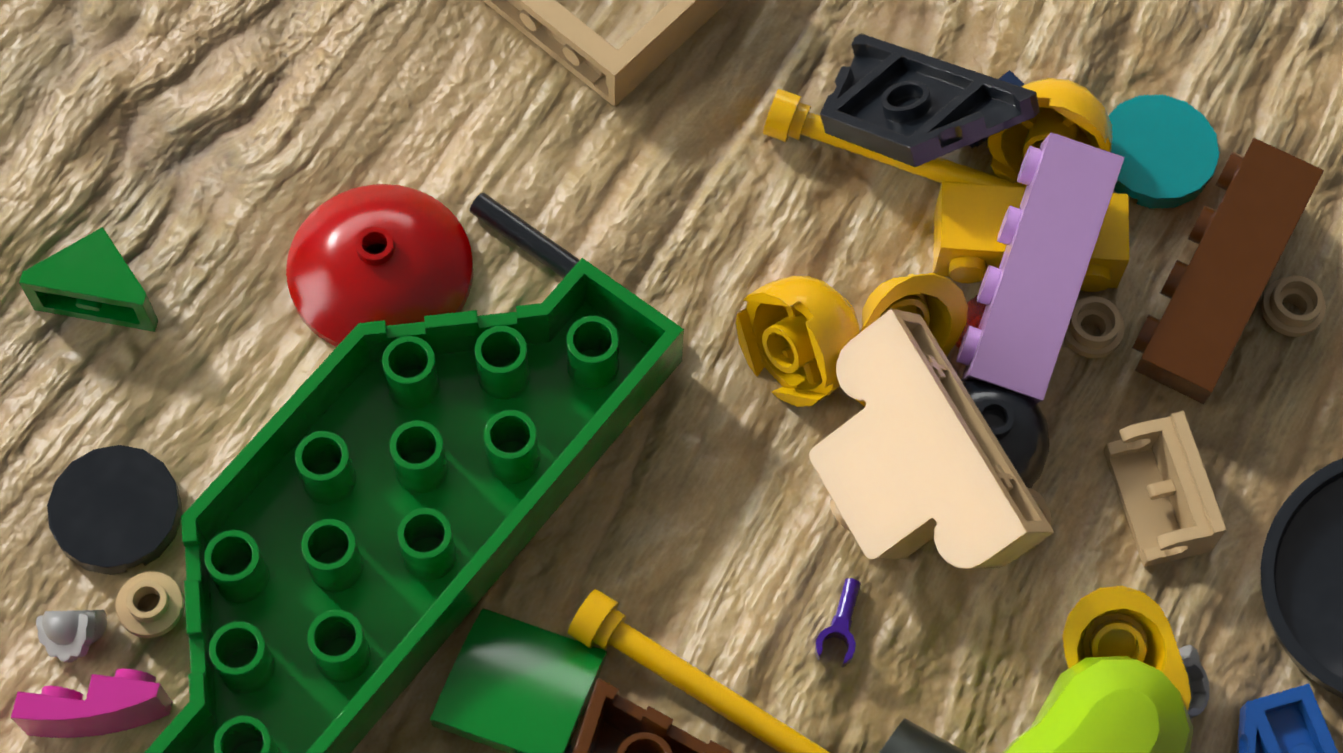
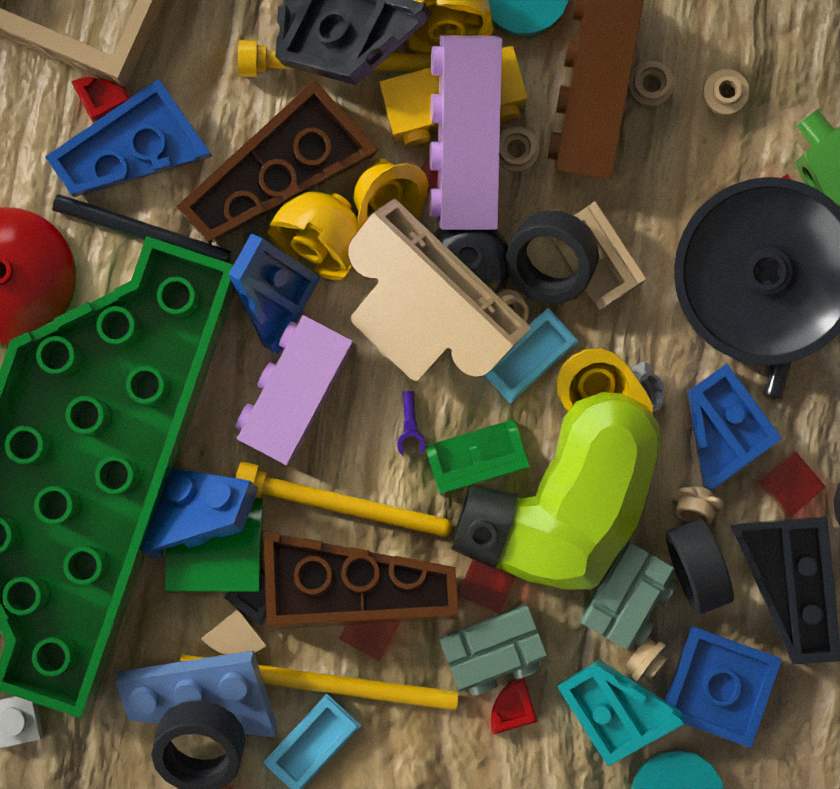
camera: 15 degrees left, 20 degrees up
(518, 623) = (198, 509): none -> blue wing
(582, 105) = (99, 96): none -> red tile
(596, 162) = (128, 144): none -> blue wing
(701, 523) = (293, 389): none -> lavender brick
(718, 383) = (271, 288): none -> blue wing
(811, 223) = (286, 157): none -> reddish brown wedge
(935, 696) = (476, 456): none -> green hinge
(1030, 589) = (532, 356): none -> medium azure tile
(1057, 473) = (539, 285): none -> black tyre

